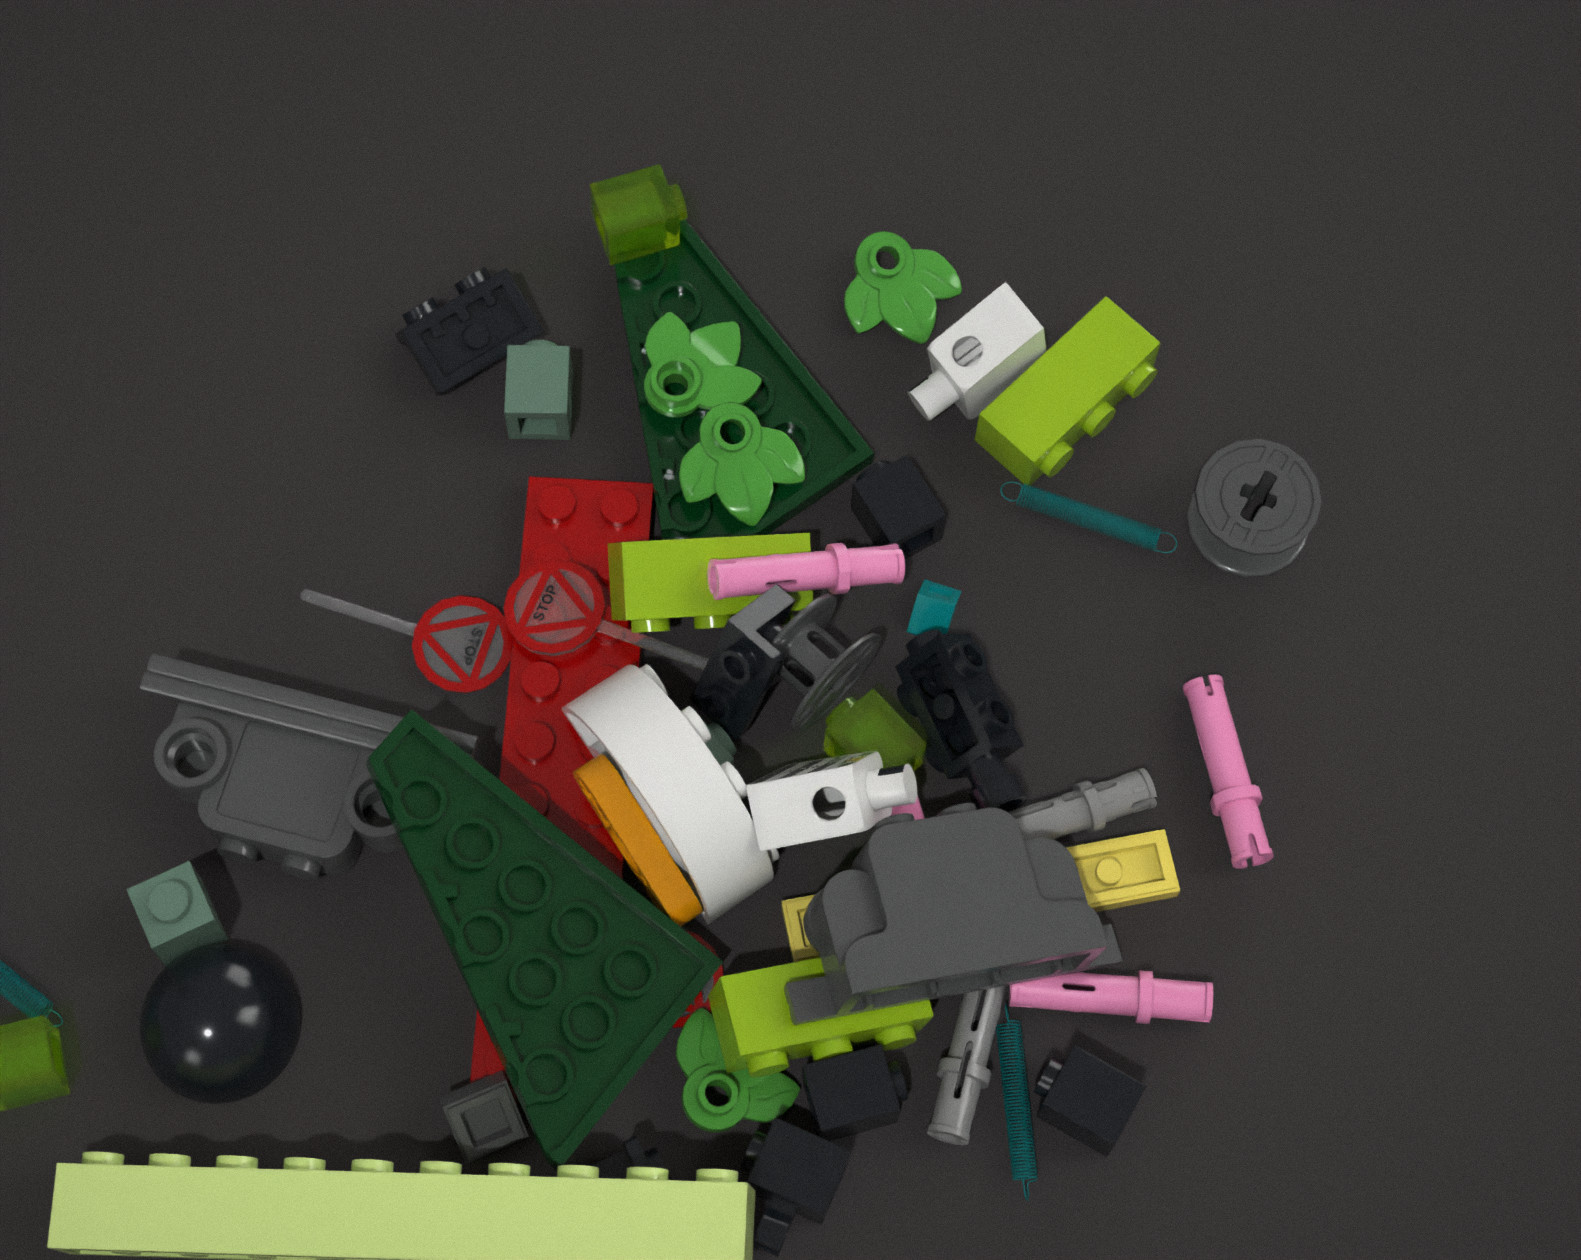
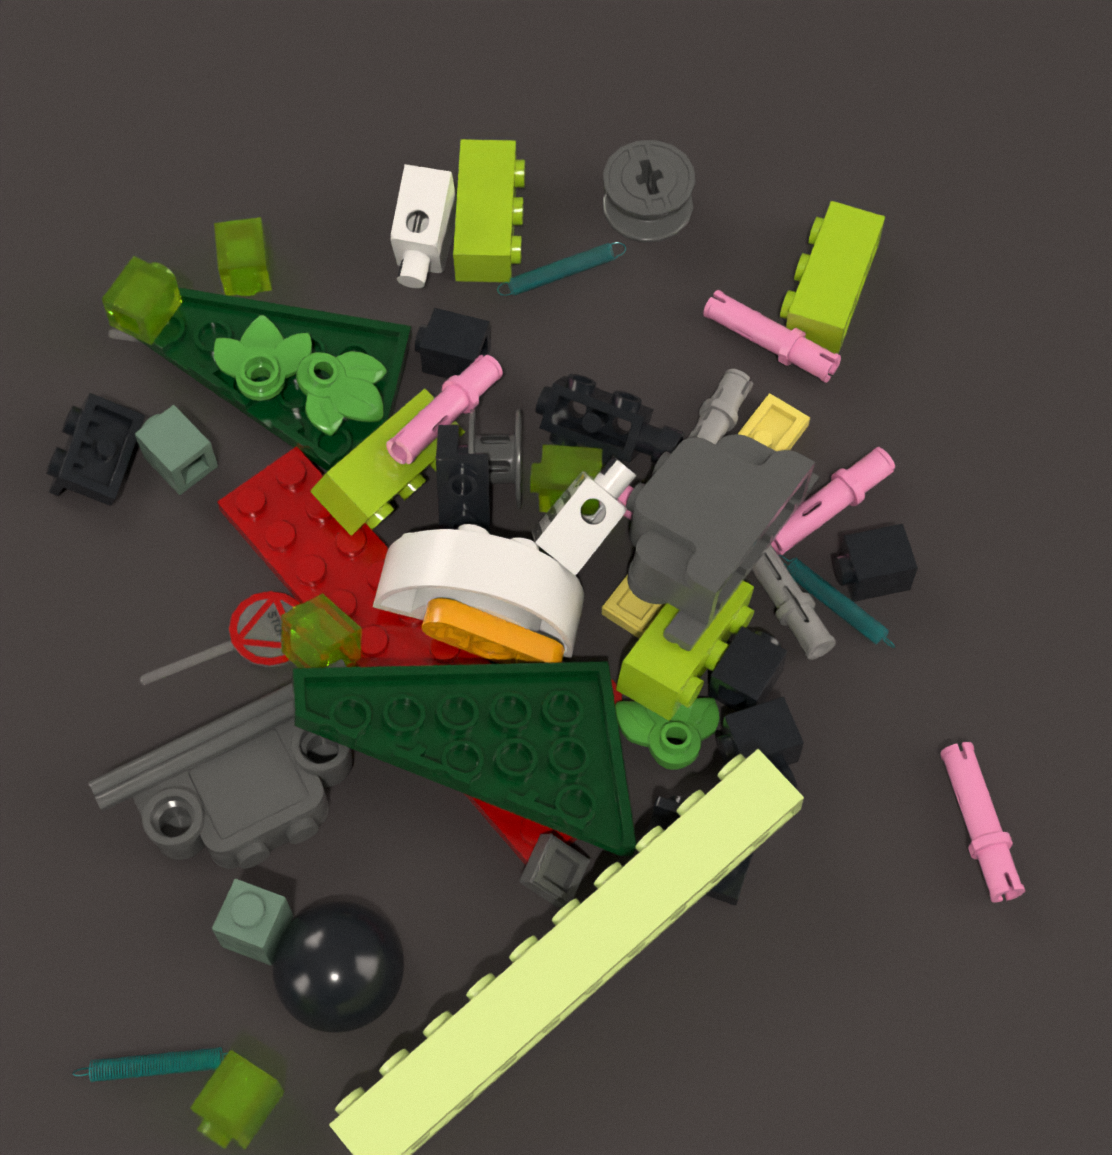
camera: 40 degrees left, 5 degrees down
(487, 695) = (319, 635): none -> clear neon green brick
(562, 607) = (316, 553): piece -> none
(784, 244) = (243, 257): none -> clear neon green brick
(900, 295) = (335, 235): bright green plate -> none
(933, 608) = (525, 386): teal piece -> none
(1354, 762) = (833, 274): none -> lime brick

